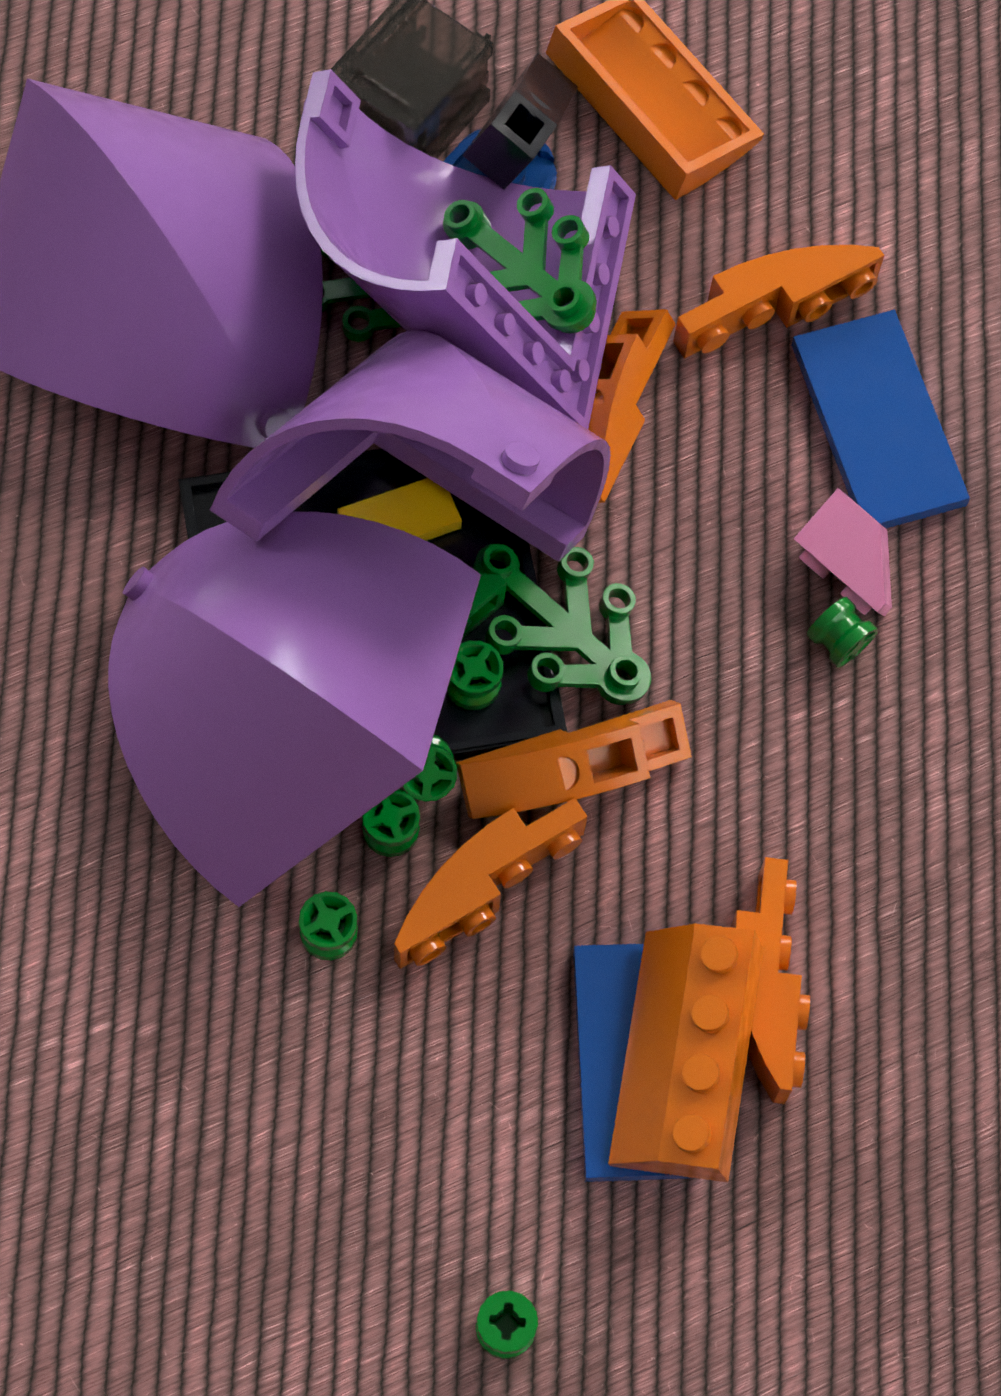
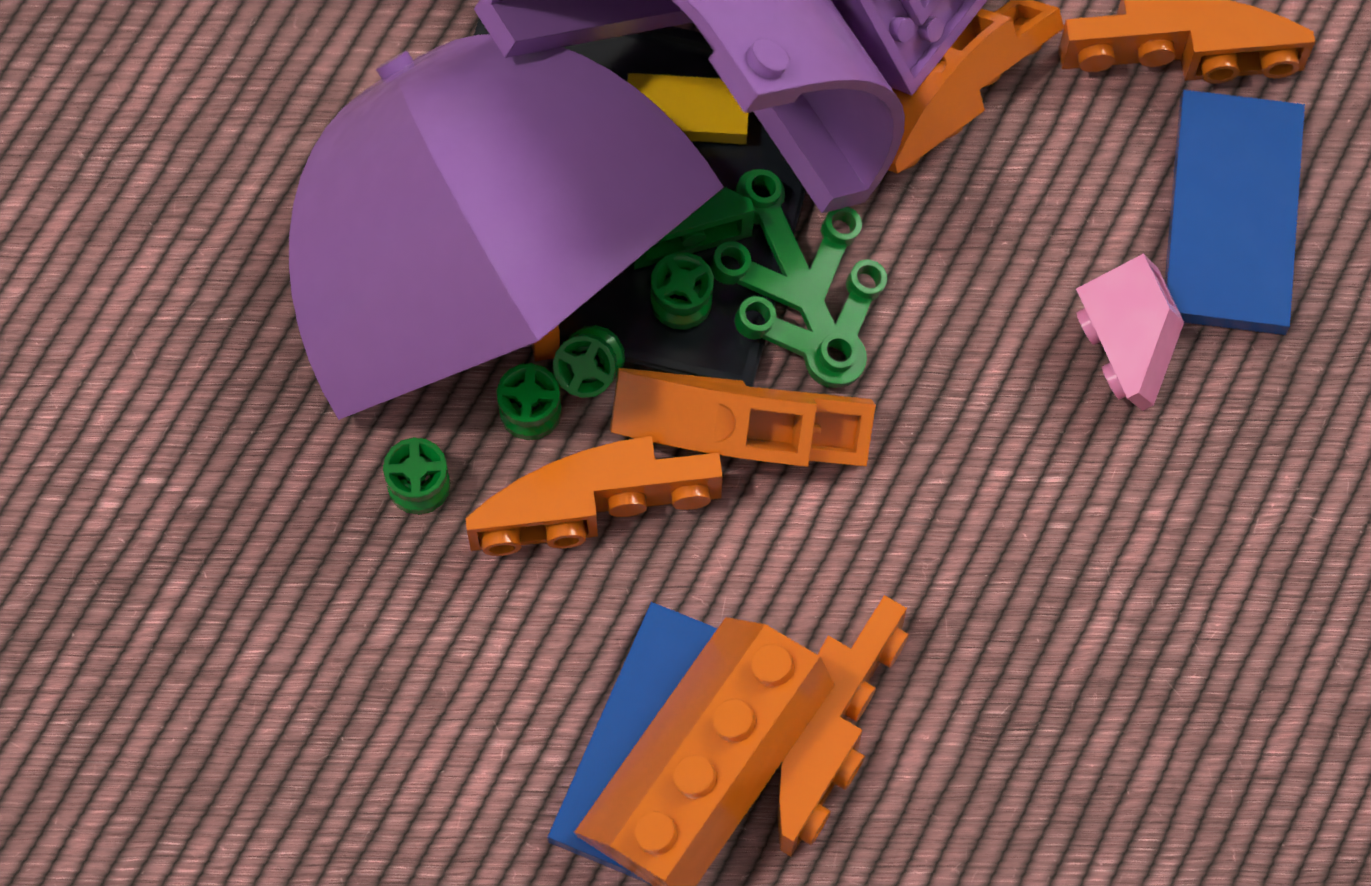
camera: 30 degrees right, 0 degrees up
(842, 632) = (1084, 405): green wheel -> none

